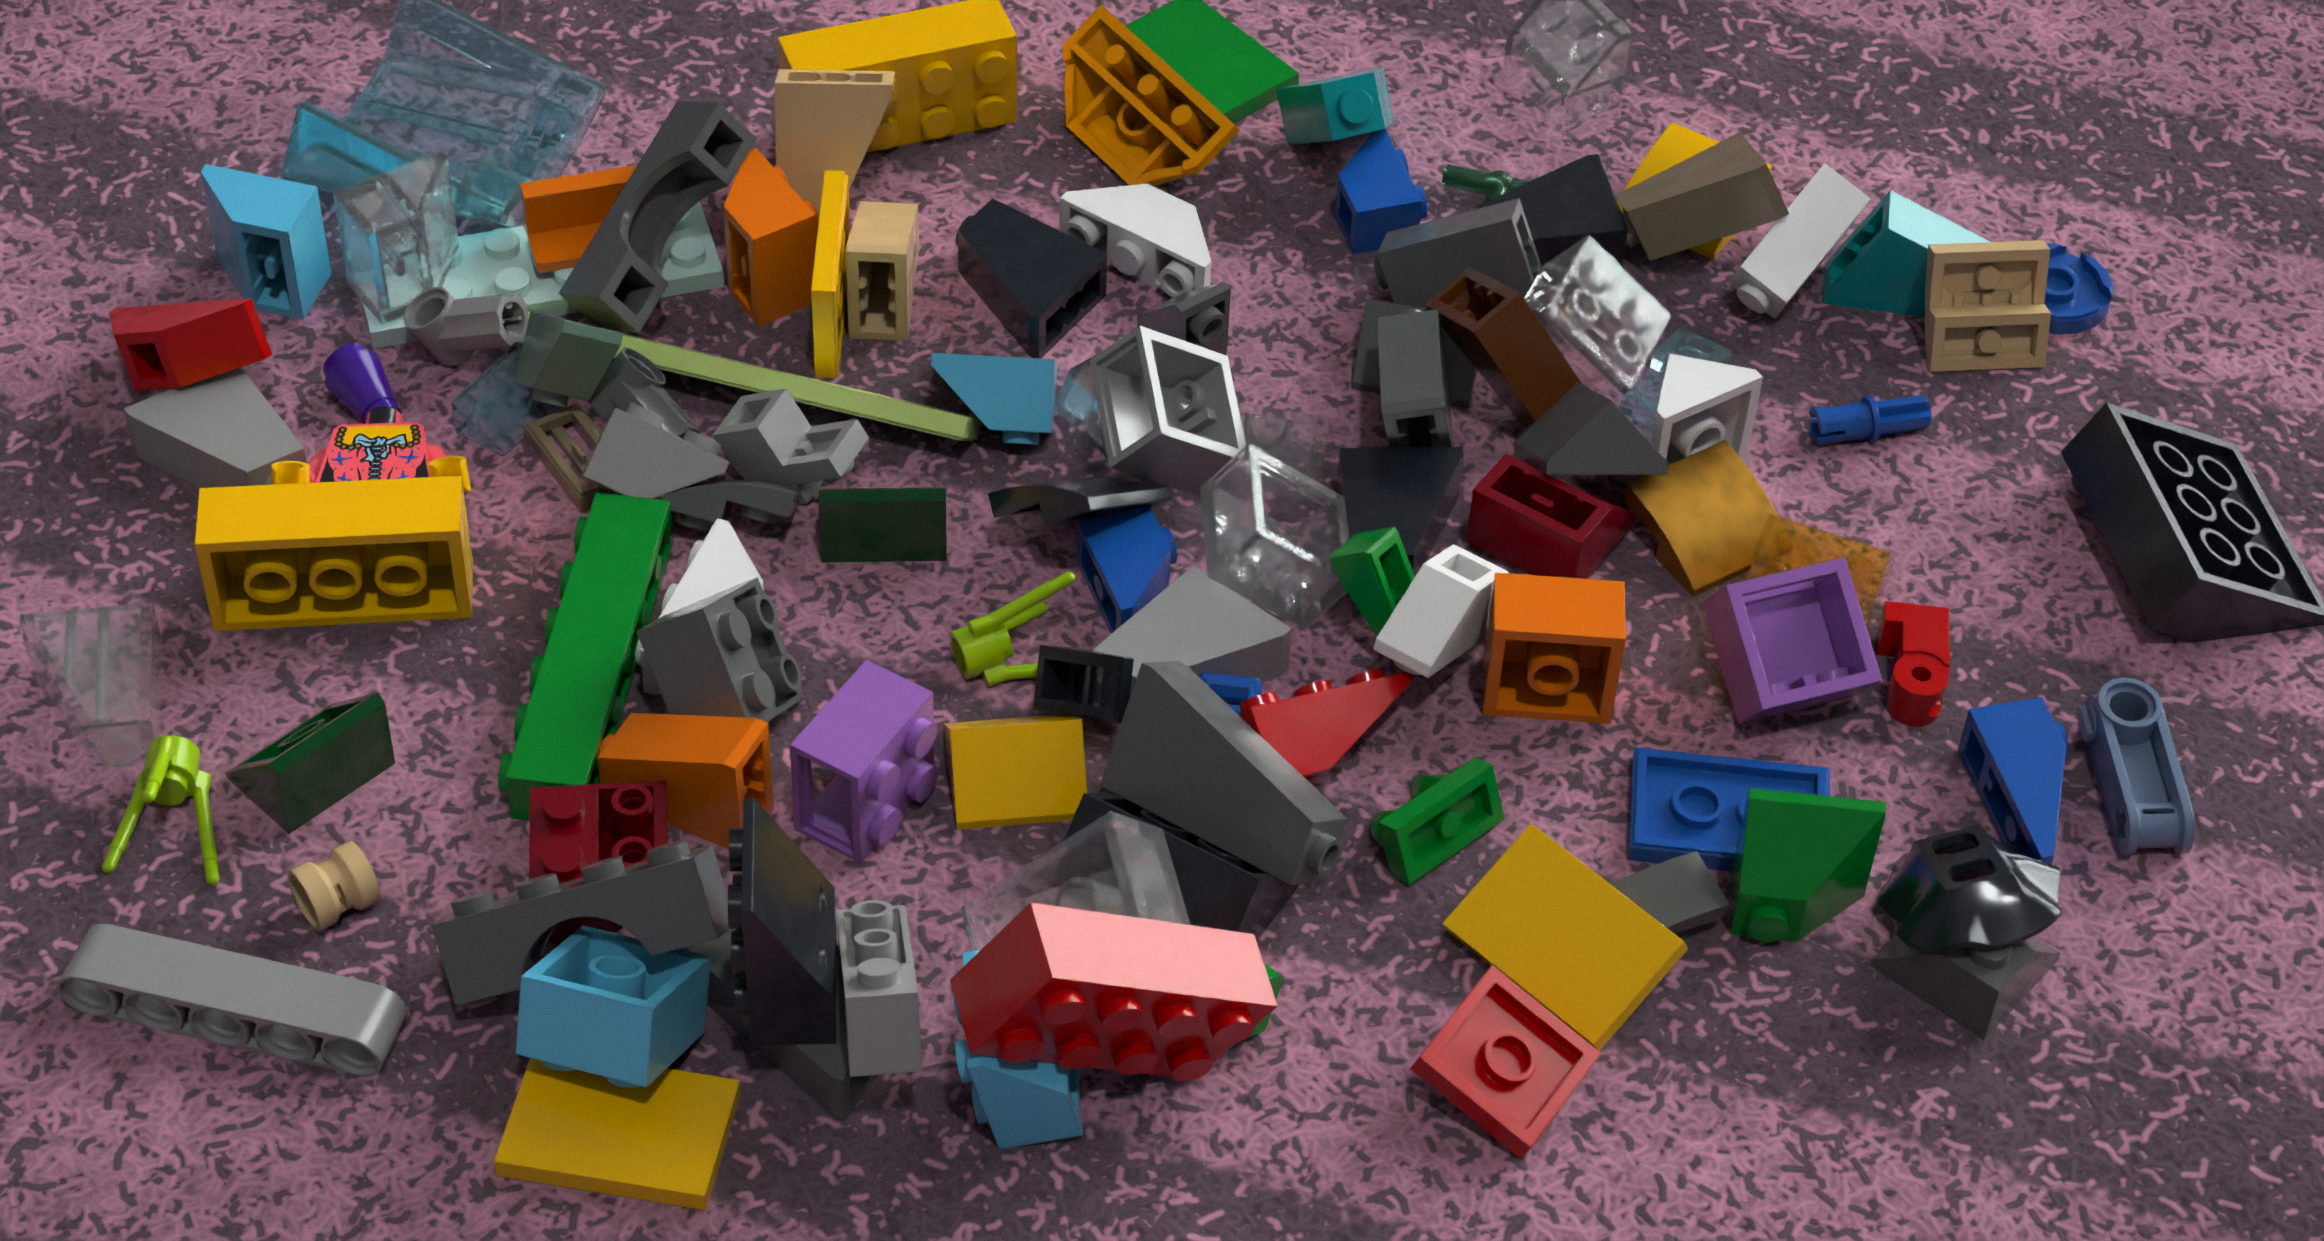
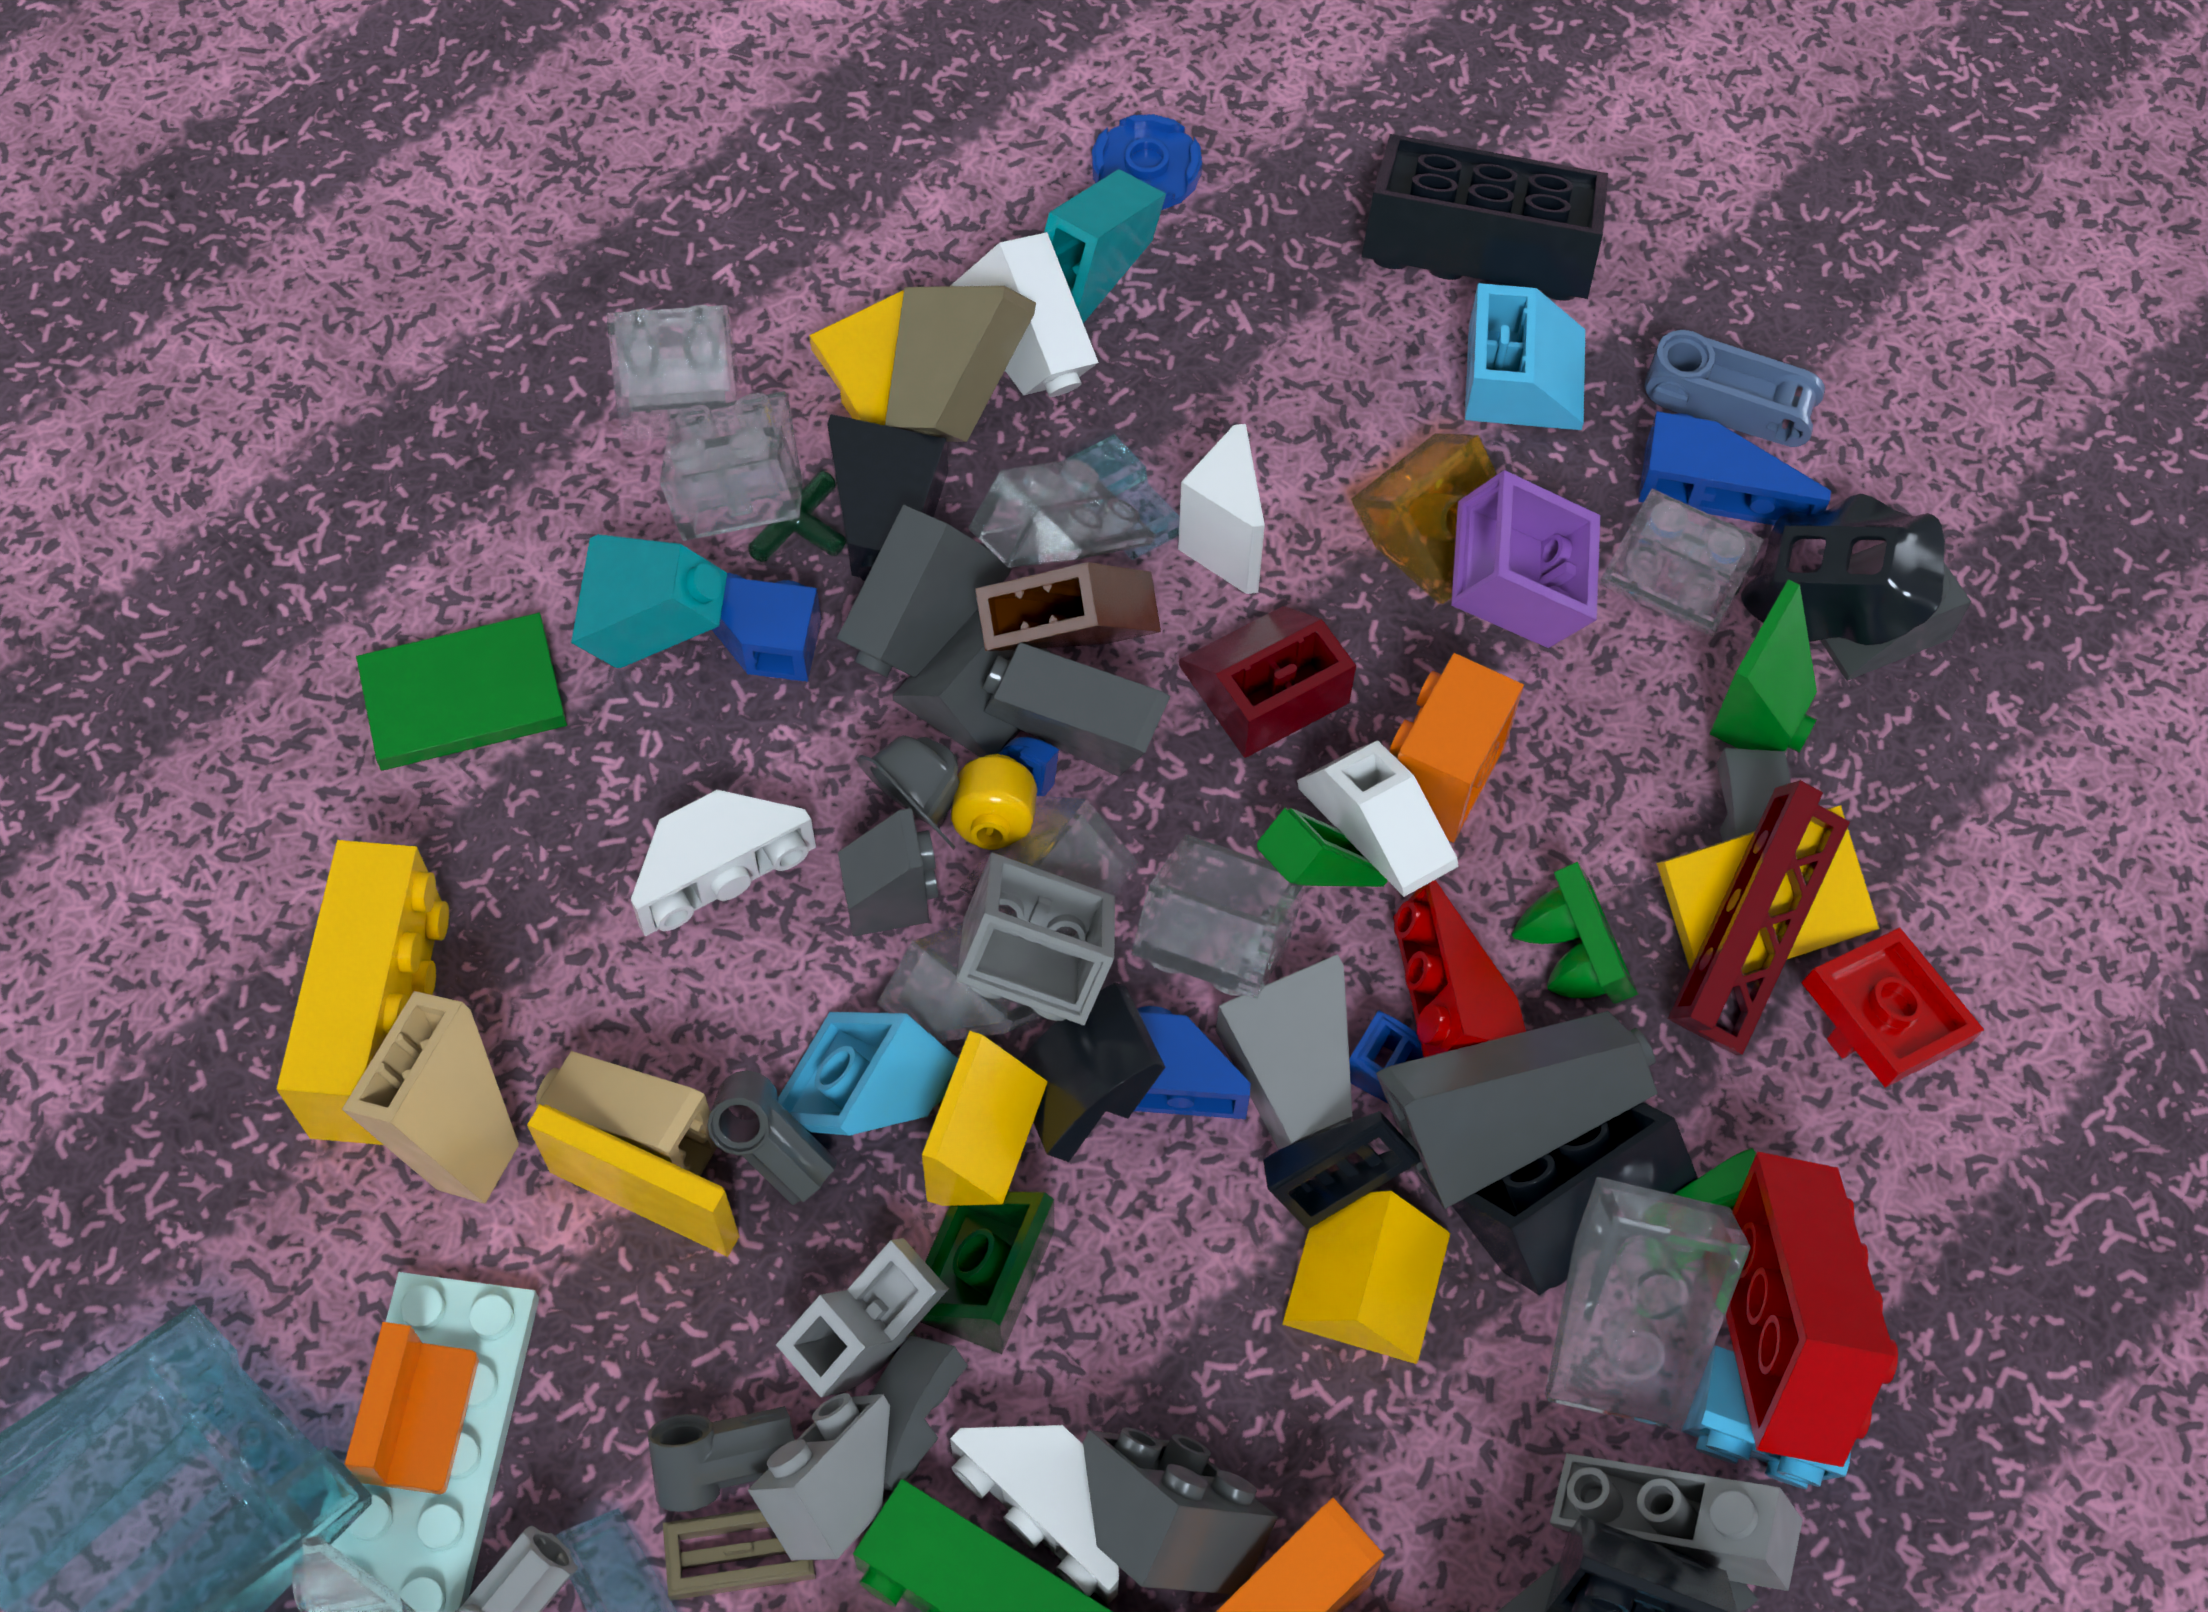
camera: 65 degrees left, 15 degrees up
(564, 358) = (631, 1509): sand green slope -> none
(687, 160) = (518, 1402): dark grey arch -> none
(768, 241) = (546, 1223): orange slope -> none
(806, 389) = (706, 1335): yellowish green tile -> none
(880, 745) = (1358, 1417): medium lavender piece -> none
(918, 321) = (772, 1141): none -> dark grey piece
(986, 640) = (1210, 1243): lime plant -> none
(991, 436) = (980, 1126): none -> yellow slope
(1029, 274) = (707, 988): black slope -> none
(1136, 106) = (531, 778): light orange wedge -> none
(1272, 319) = (916, 776): none -> dark grey piece
(1301, 377) = (994, 802): none -> yellow head
(1355, 402) = (1037, 757): none -> blue tile
(1401, 489) = (1194, 790): black slope -> none
(1505, 118) = (732, 466): none -> clear slope
(1524, 891) = (1746, 912): none -> dark red fence
(1588, 437) = (1216, 607): dark grey slope -> none
(1699, 801) = (1651, 705): blue tile -> none
(1704, 516) = (1317, 555): pearl gold slope -> none
(1869, 419) = (1245, 374): blue axle -> none
(1882, 756) = (1682, 563): none -> clear slope
(1921, 652) = (1557, 470): red leg -> none
(1986, 305) = (1176, 218): tan slope -> none
(2033, 594) = (1524, 360): none -> medium azure slope

